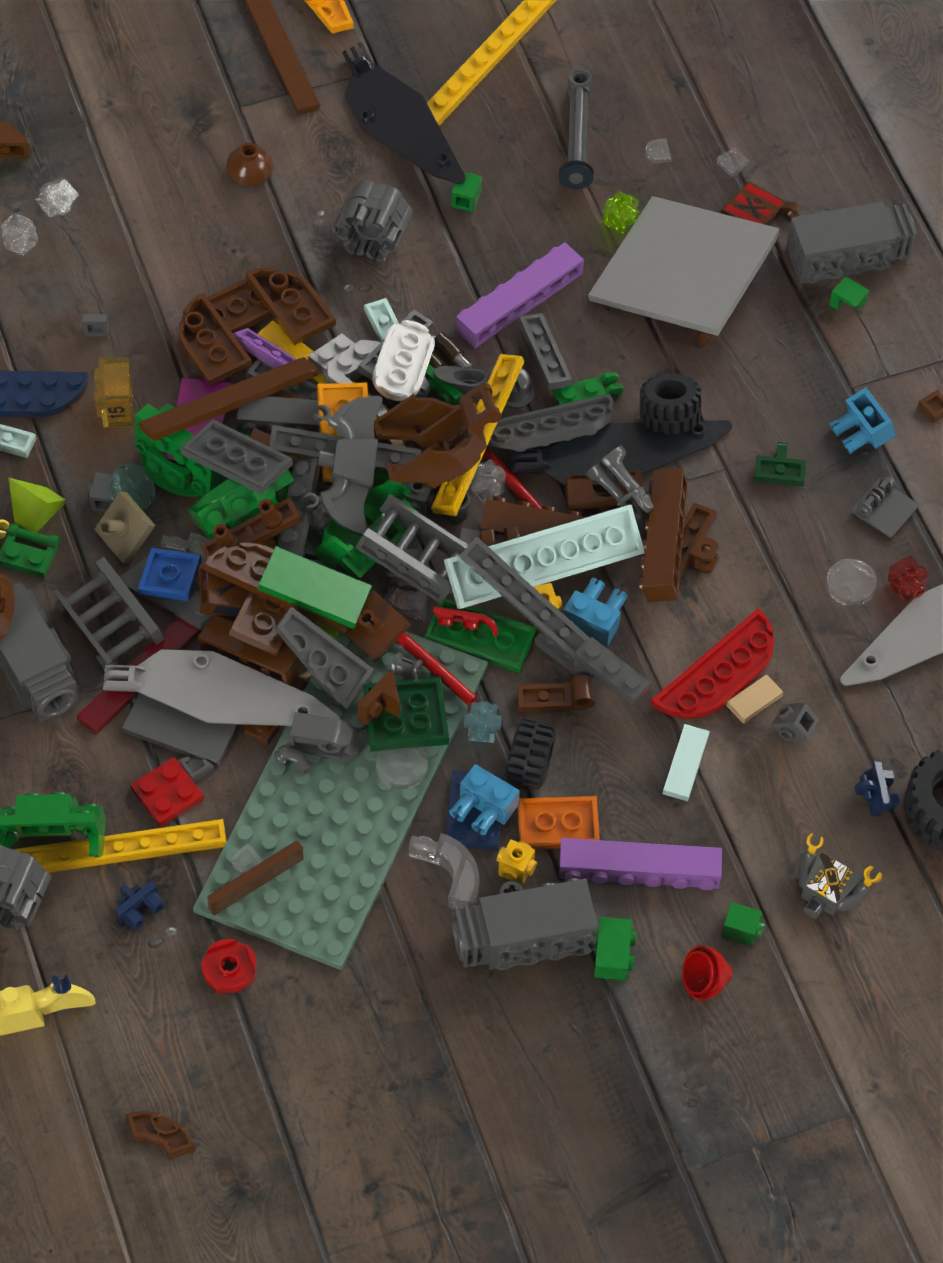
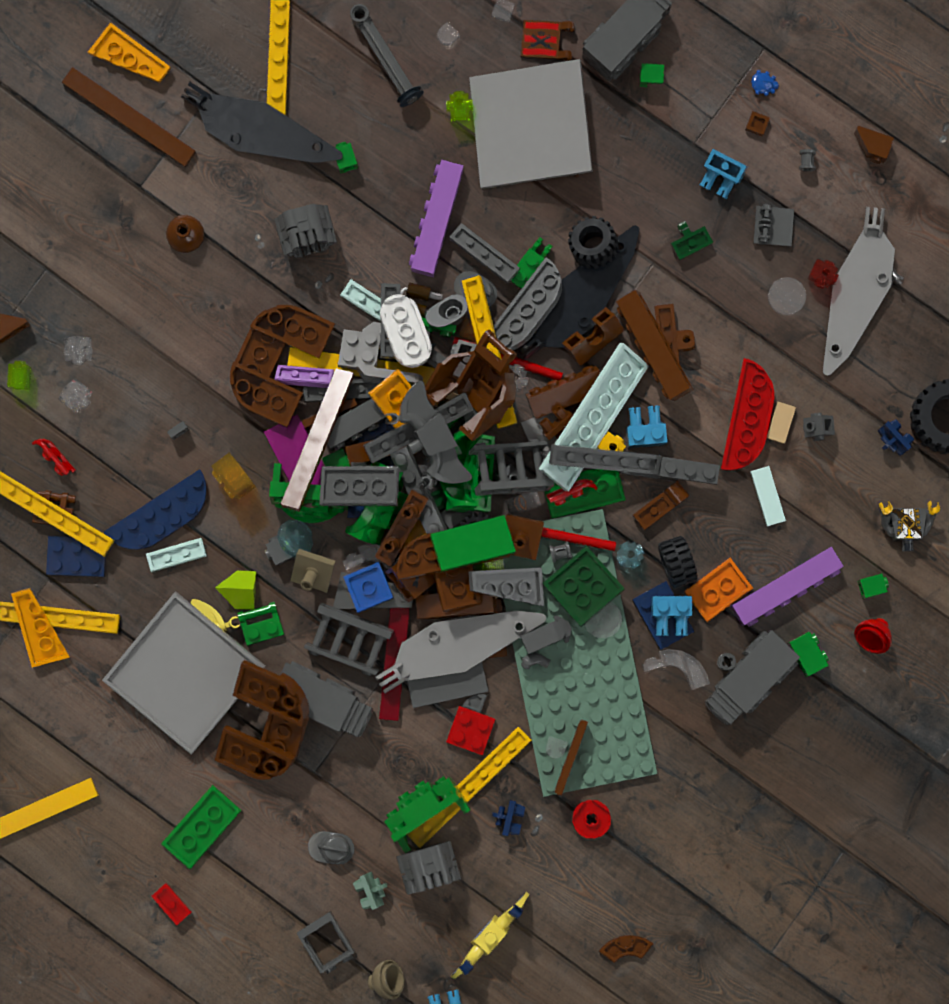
camera: 30 degrees left, 25 degrees up
(380, 697) = (566, 587): reddish brown slope -> none
(516, 861) = (706, 636): yellow brick -> none
(614, 463) = (620, 333): dark grey piece -> none

